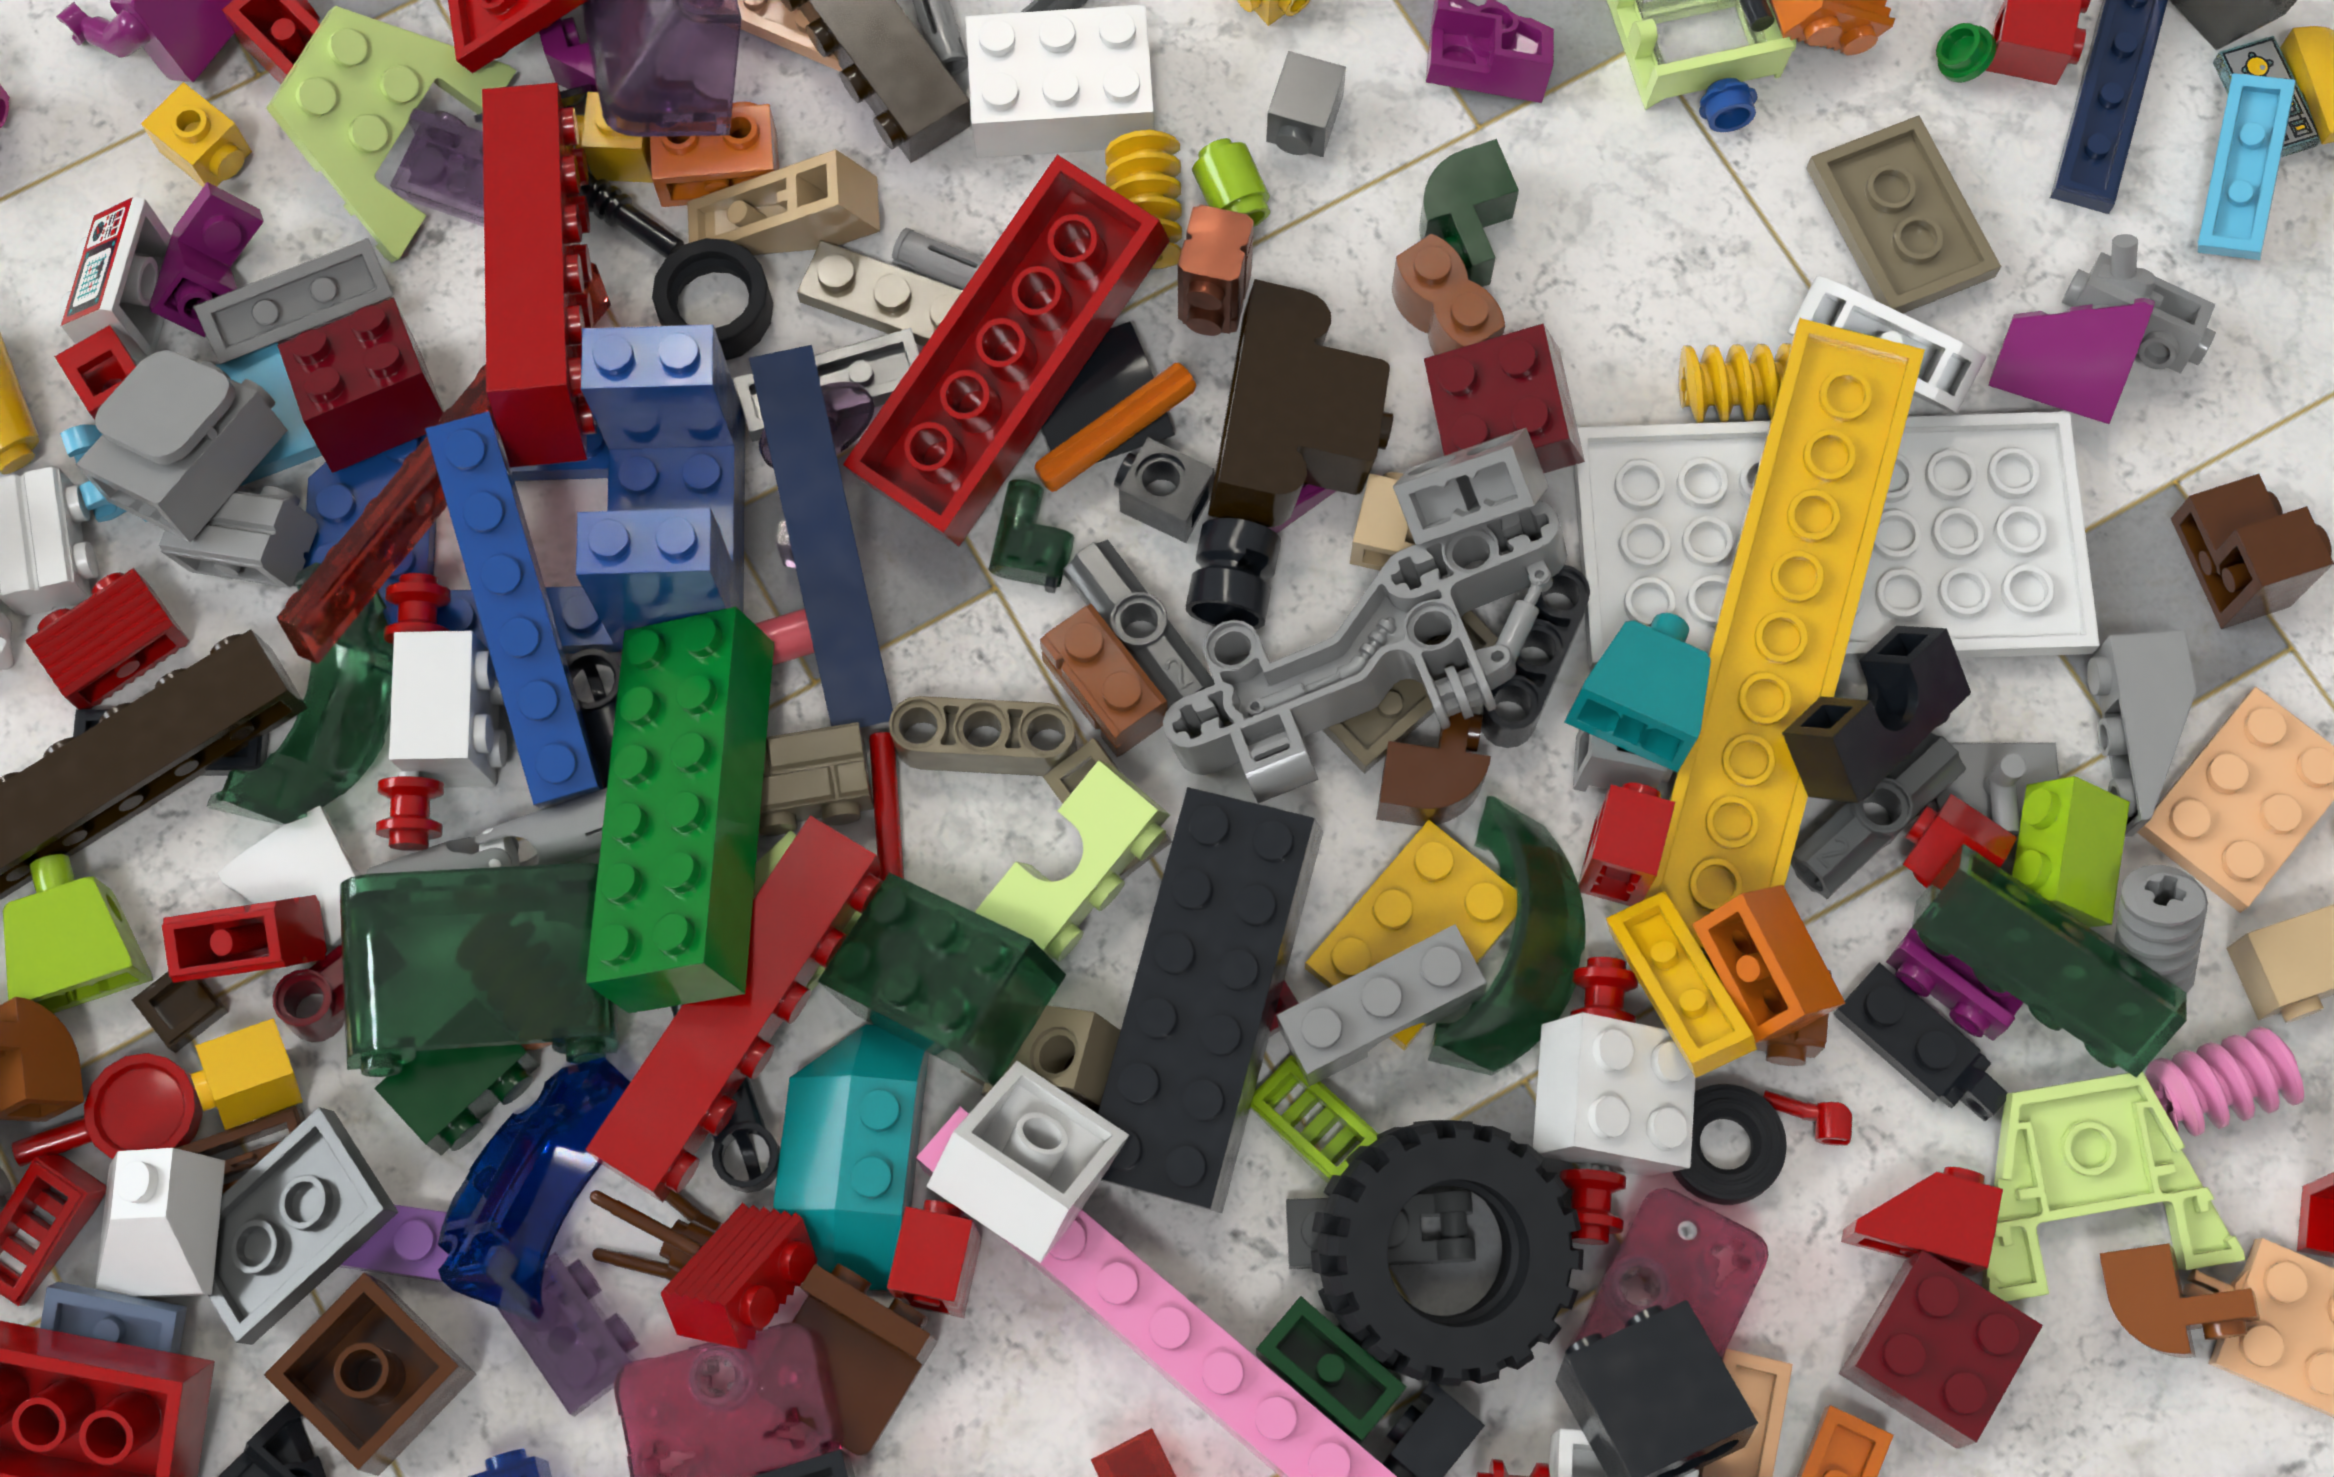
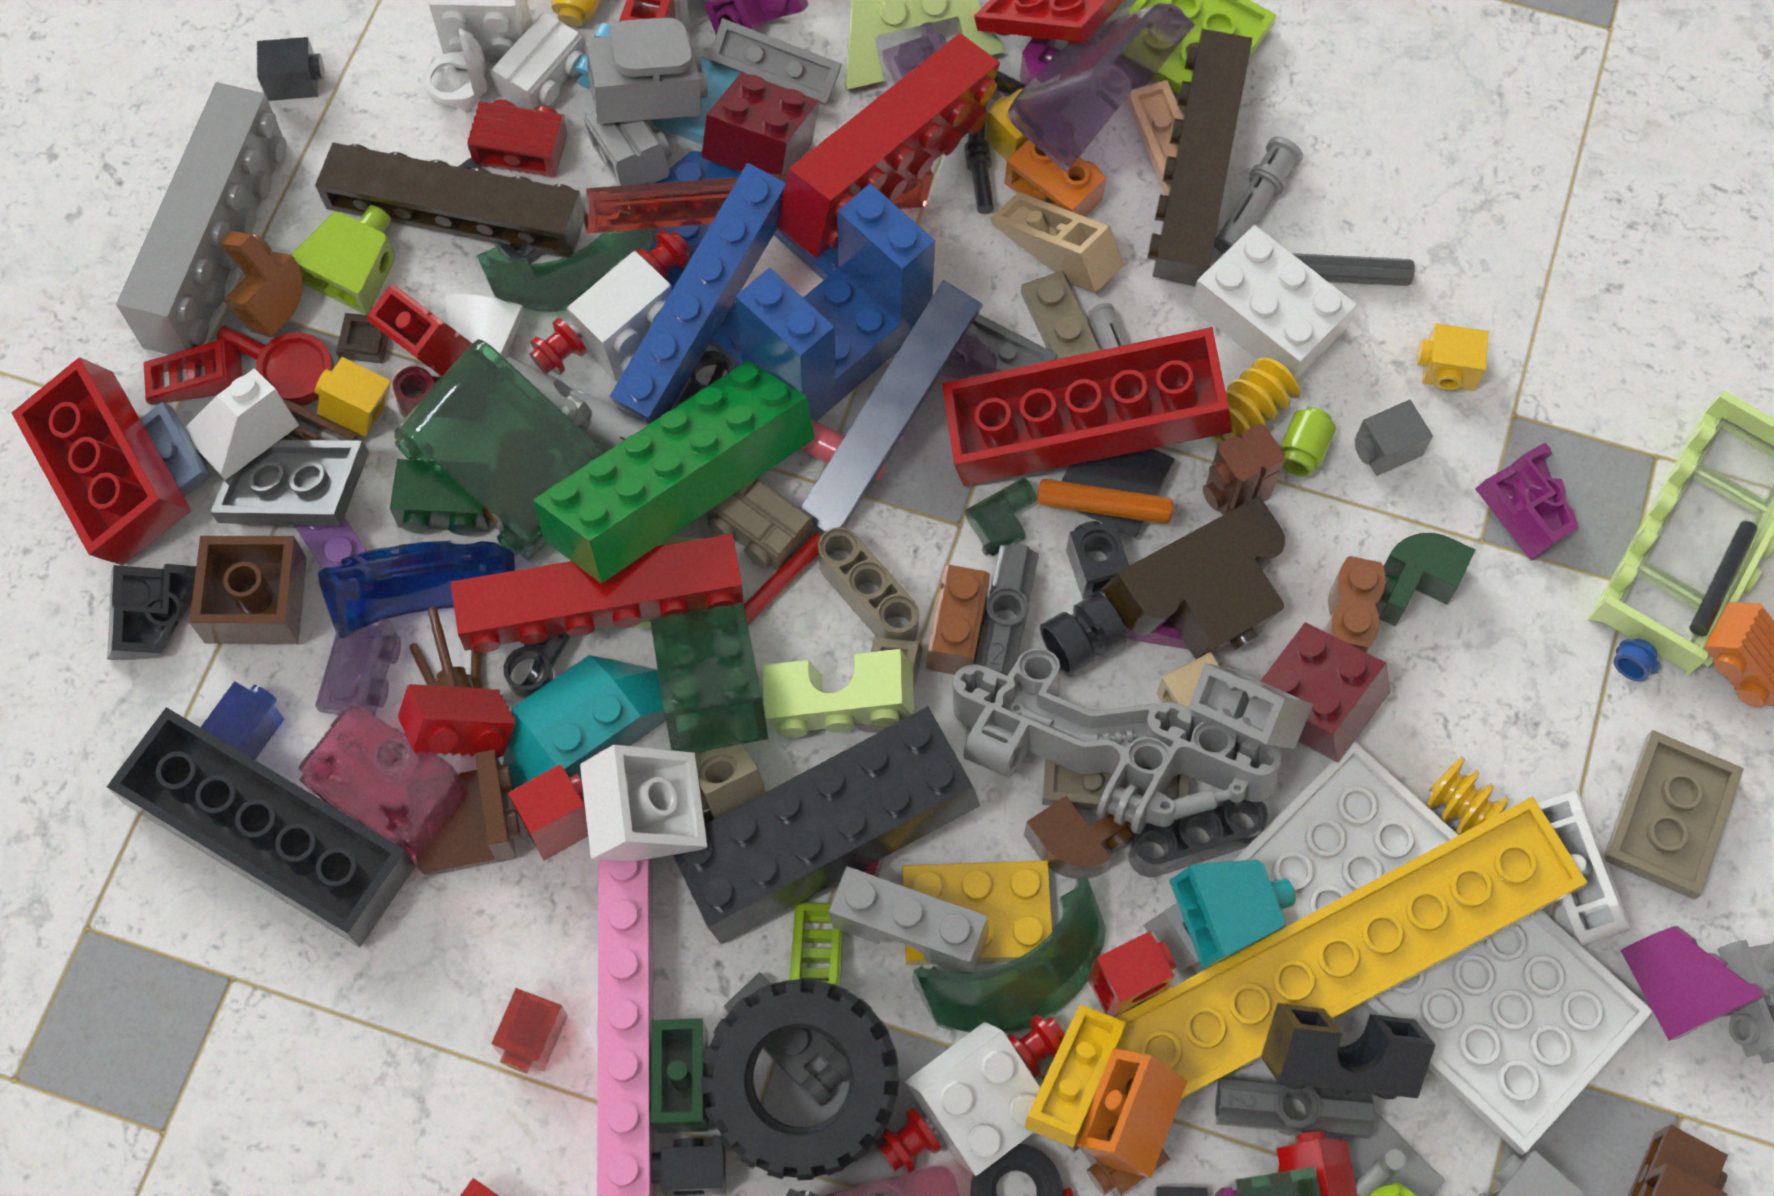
camera: 45 degrees right, 5 degrees down
(719, 257) = (978, 220): black tyre -> none

